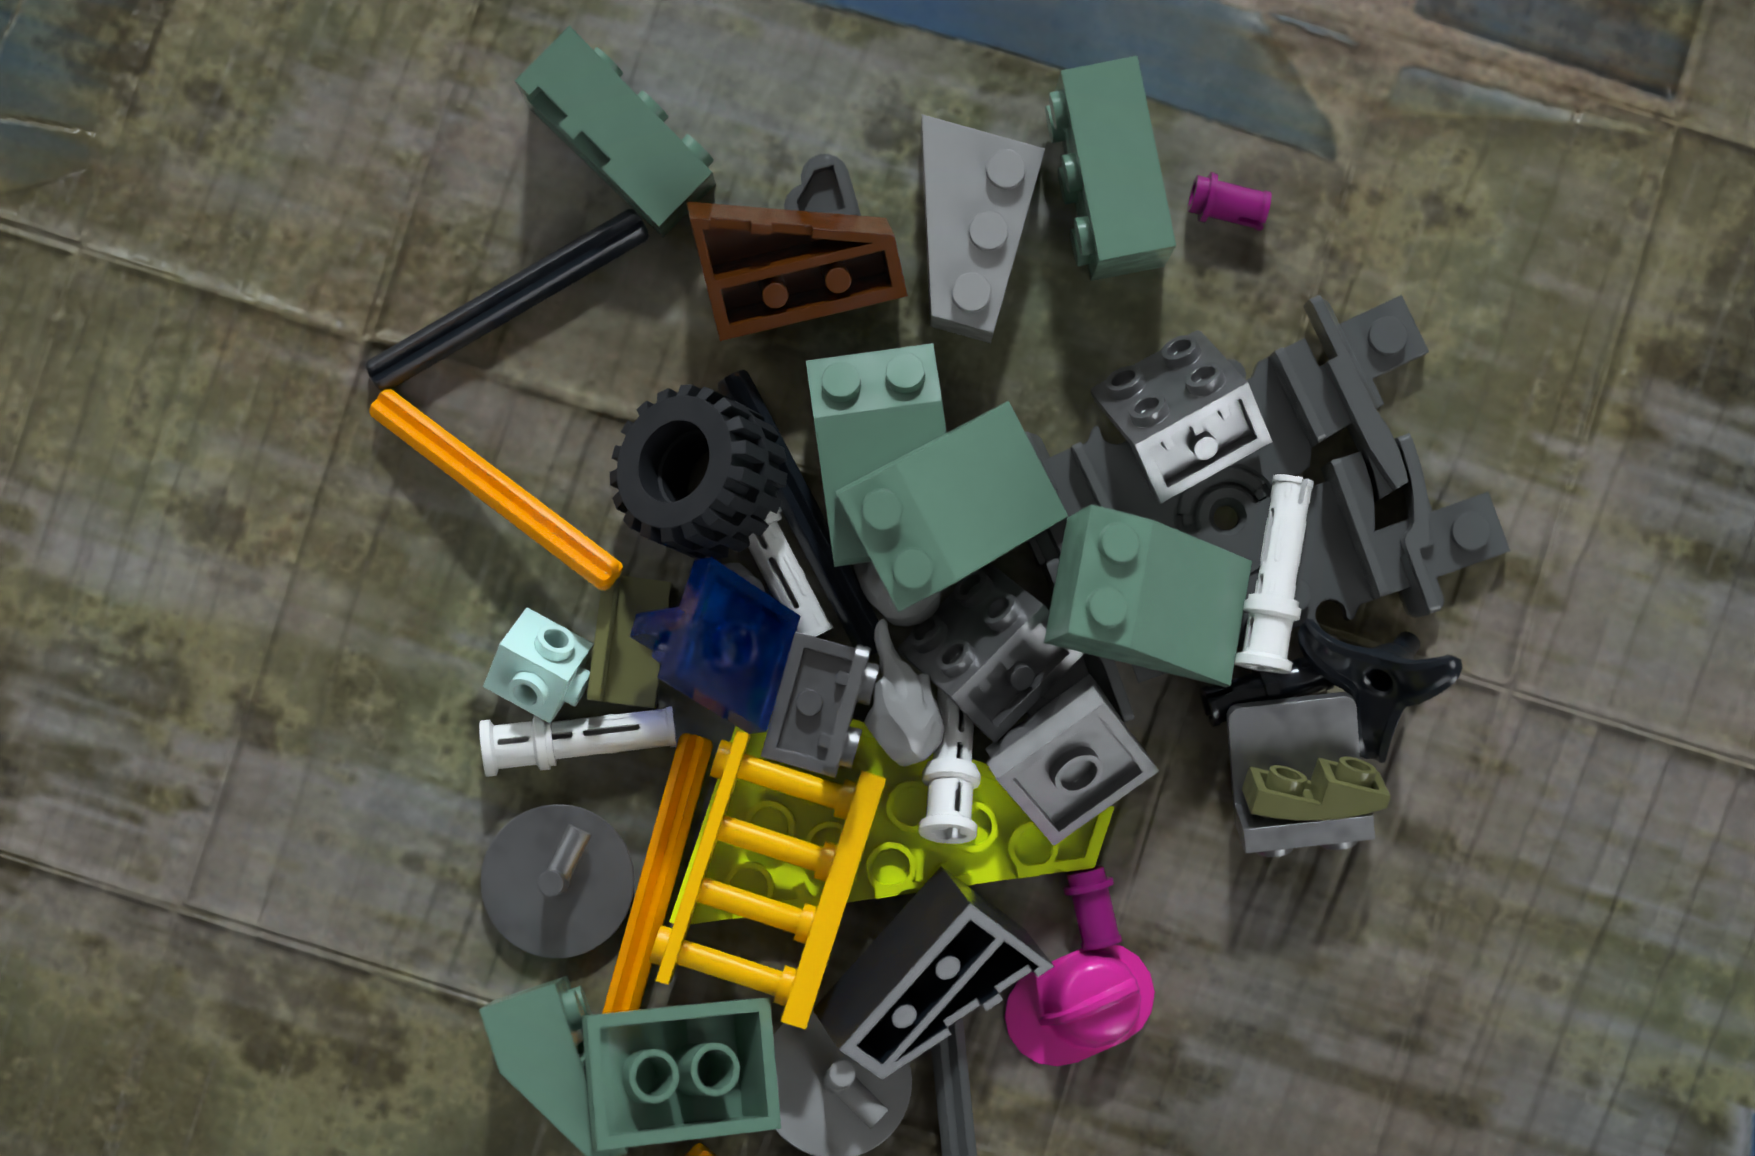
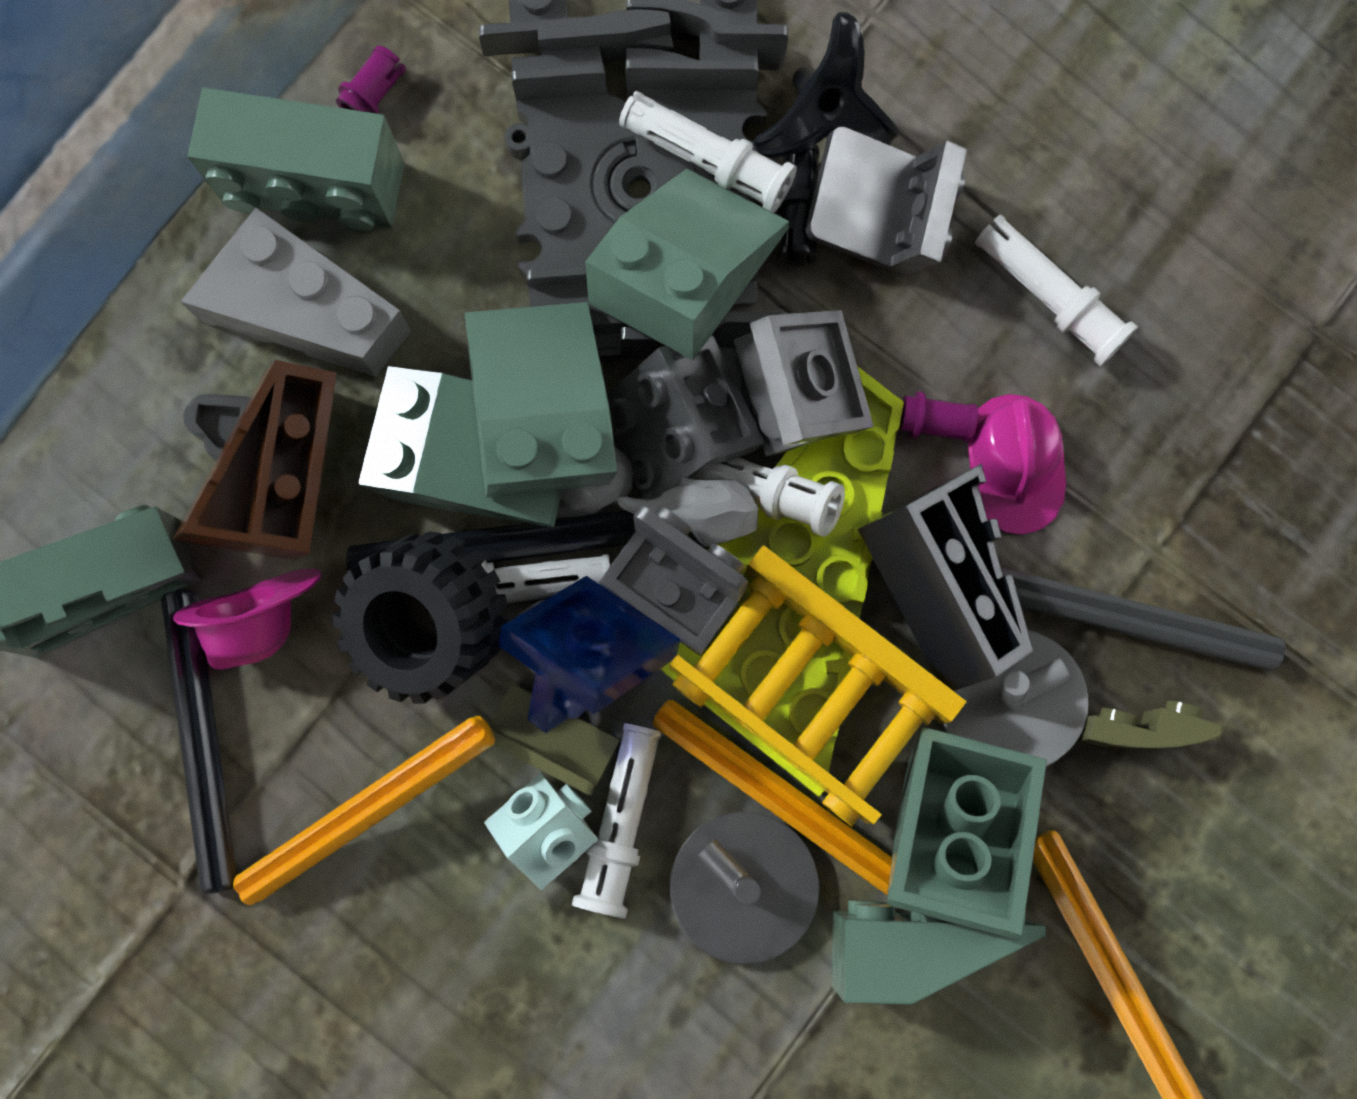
camera: 70 degrees left, 5 degrees down
(639, 304) = (247, 623): none -> dark pink piece
(1183, 413) = (536, 177): flat silver bracket -> none
(1261, 1010) = (1076, 308): none -> white pin
(1334, 791) = (910, 181): olive slope -> none

